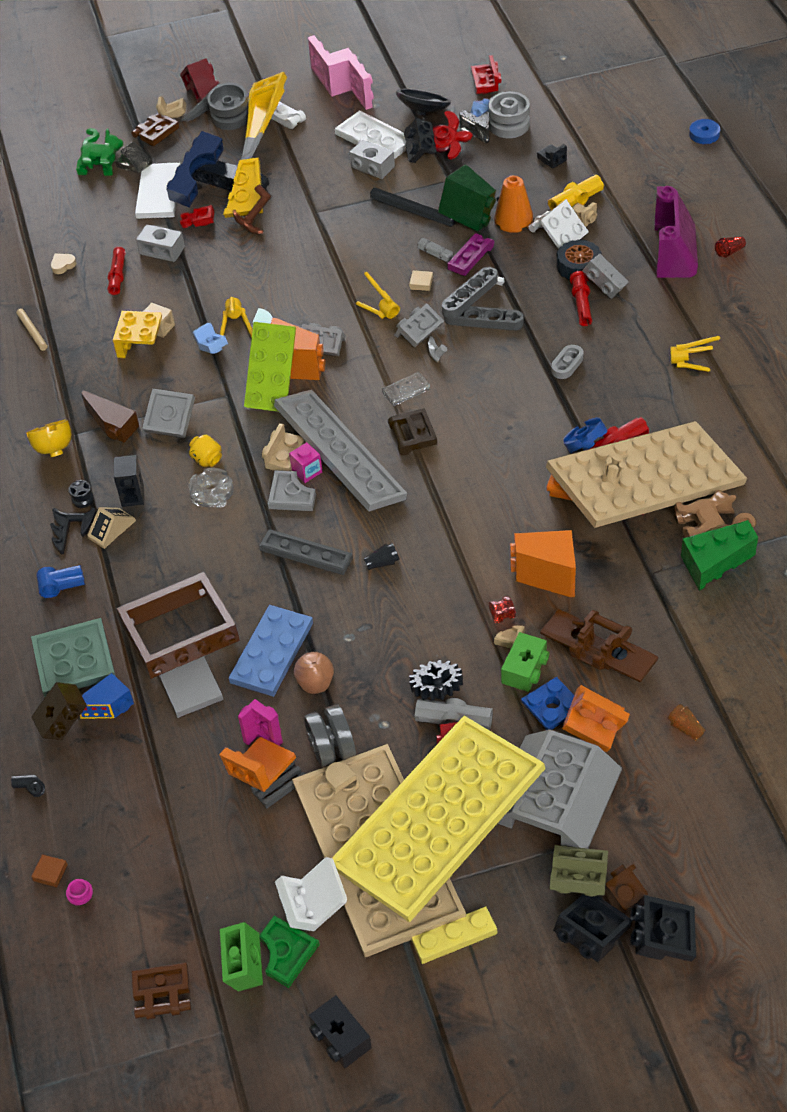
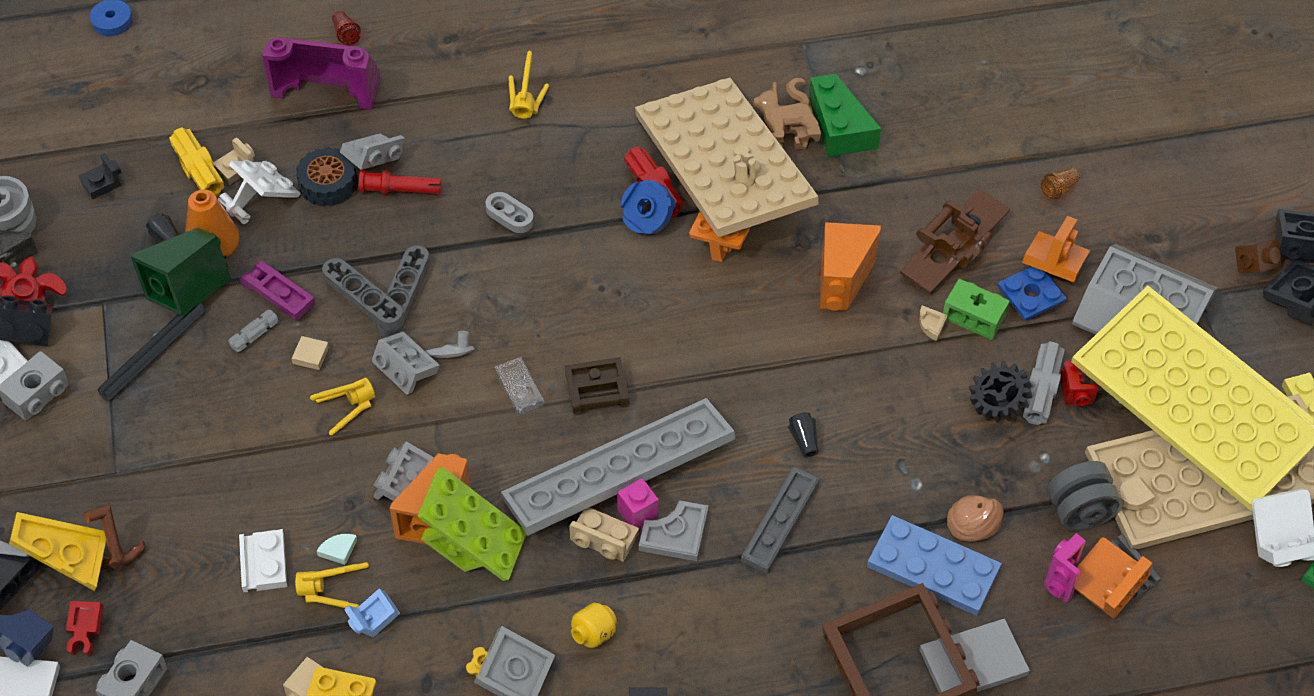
camera: 90 degrees left, 5 degrees up
(211, 497) = (658, 639): clear plate -> none
(252, 287) = (263, 560): none -> white plate
(502, 609) = (899, 321): clear red wheel -> none
(579, 870) = (1247, 292): olive brick -> none

